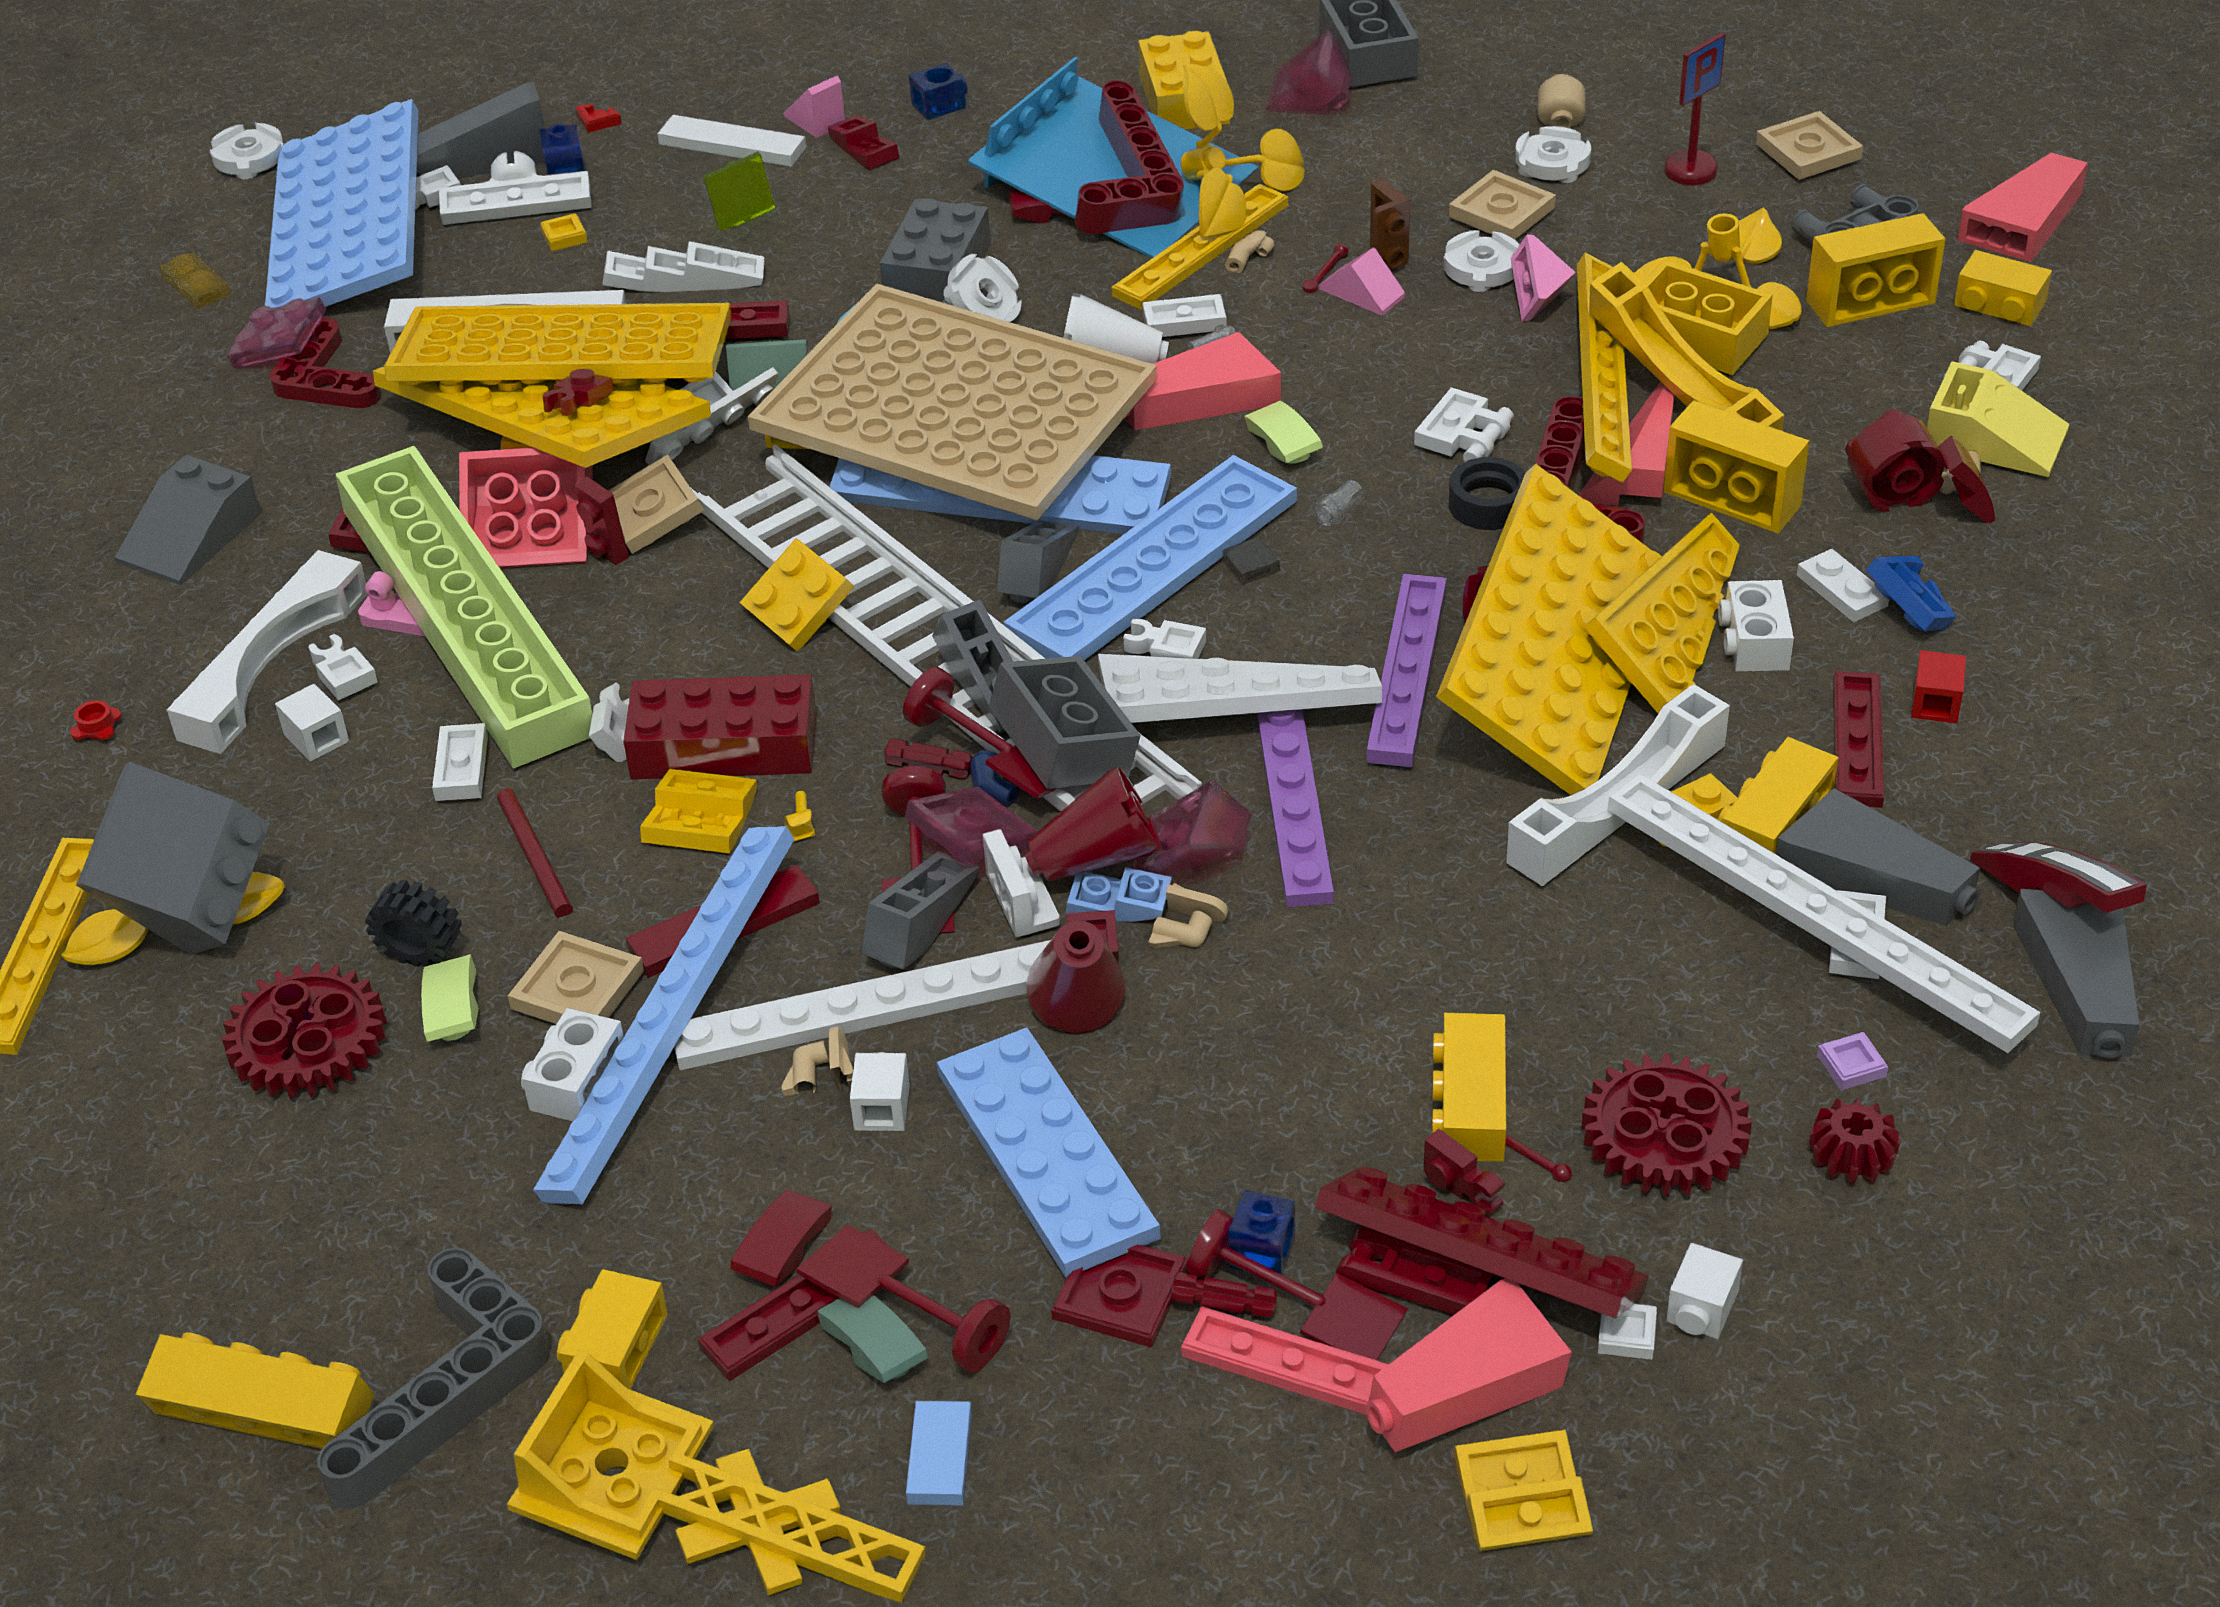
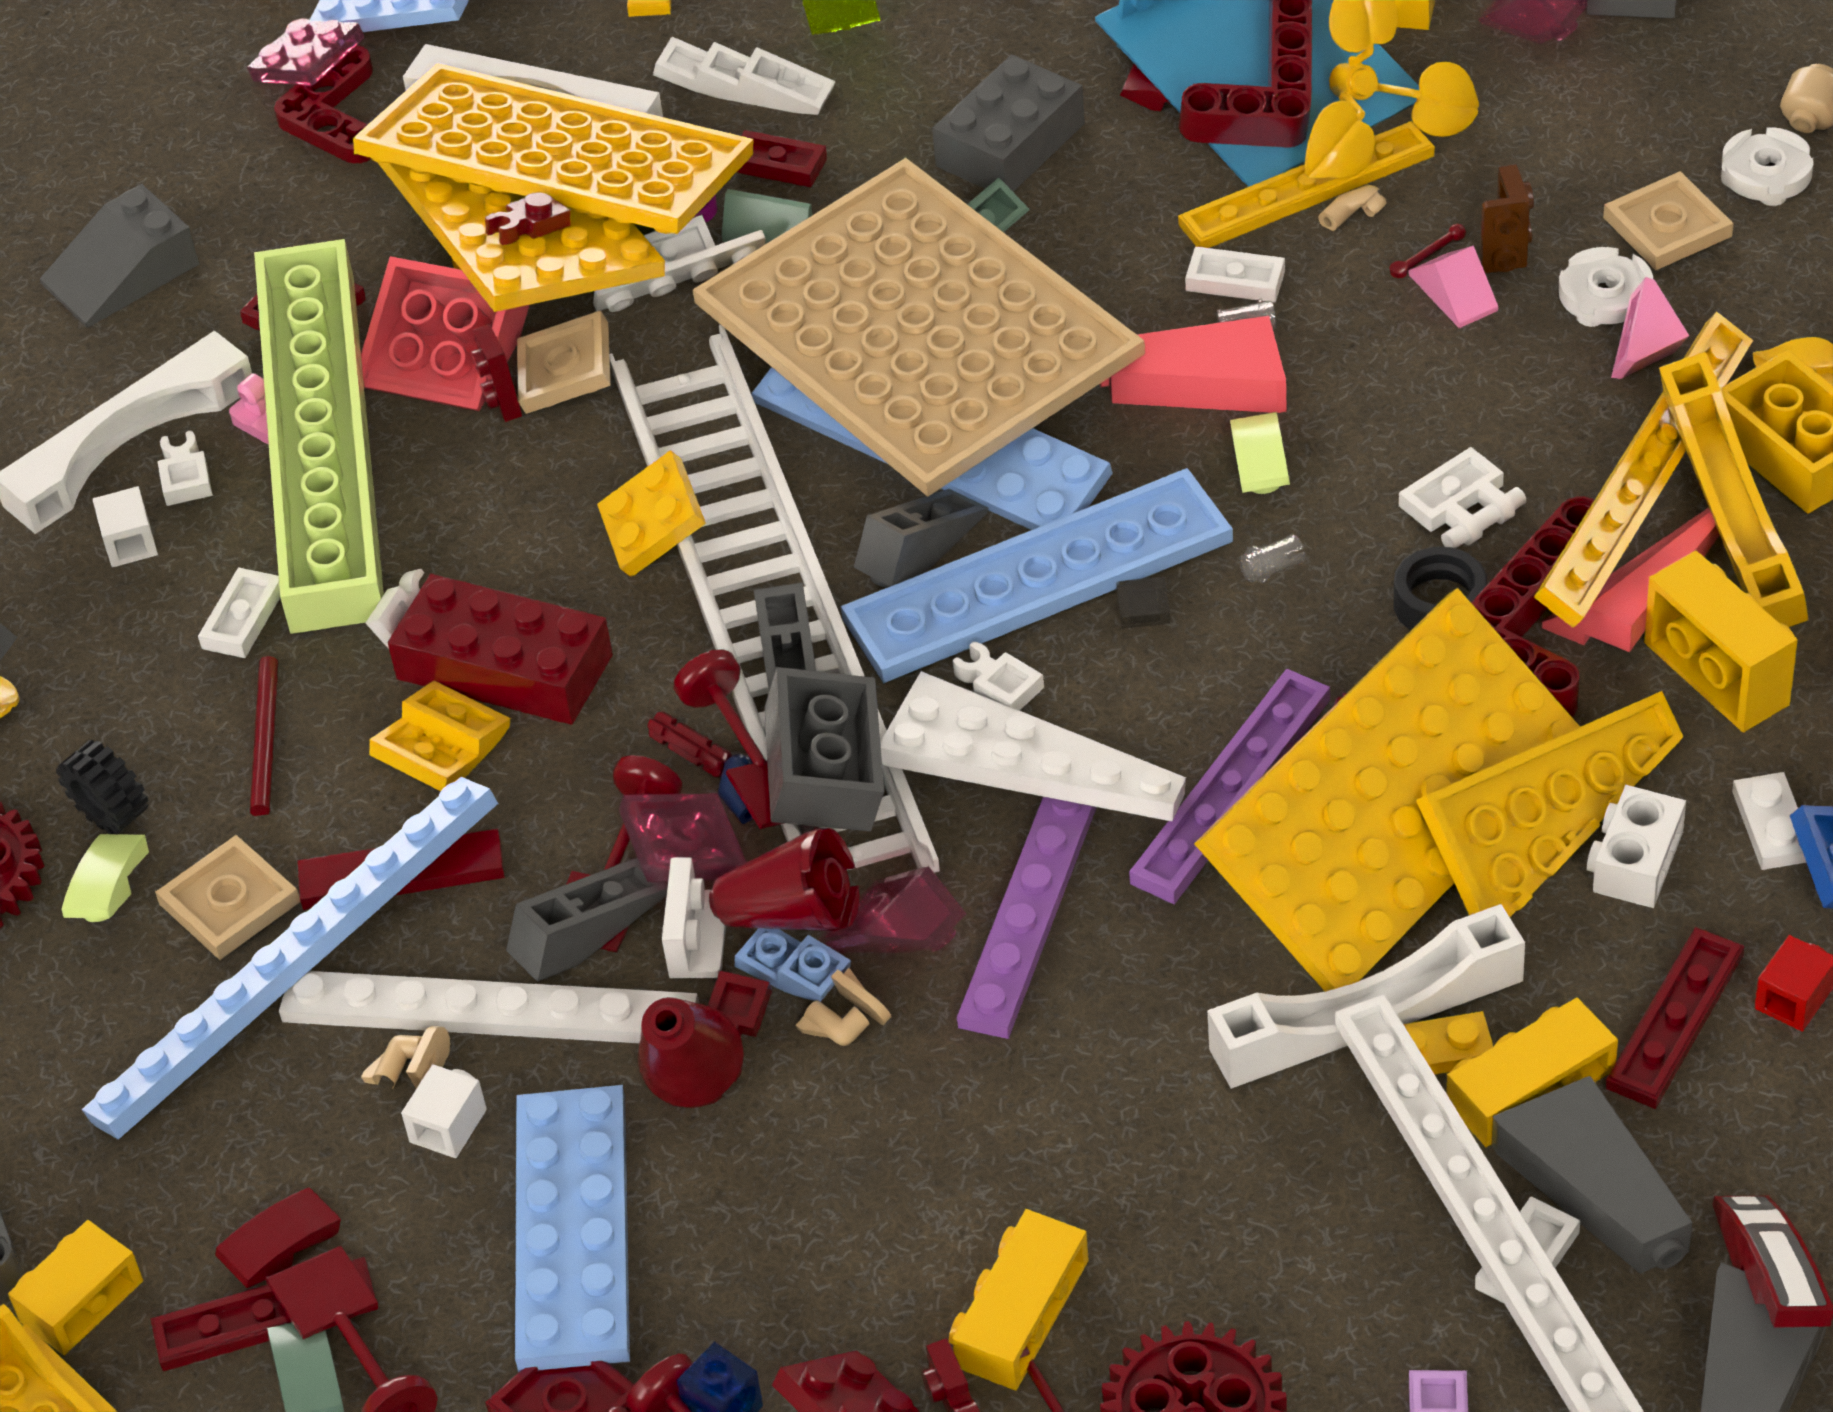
camera: 25 degrees right, 5 degrees up
(570, 1063) = (175, 983): white brick -> none
(800, 823) = (529, 781): yellow hand -> none
(974, 274) = (1005, 195): white plate -> none
(1113, 331) = (1130, 284): white cone -> none

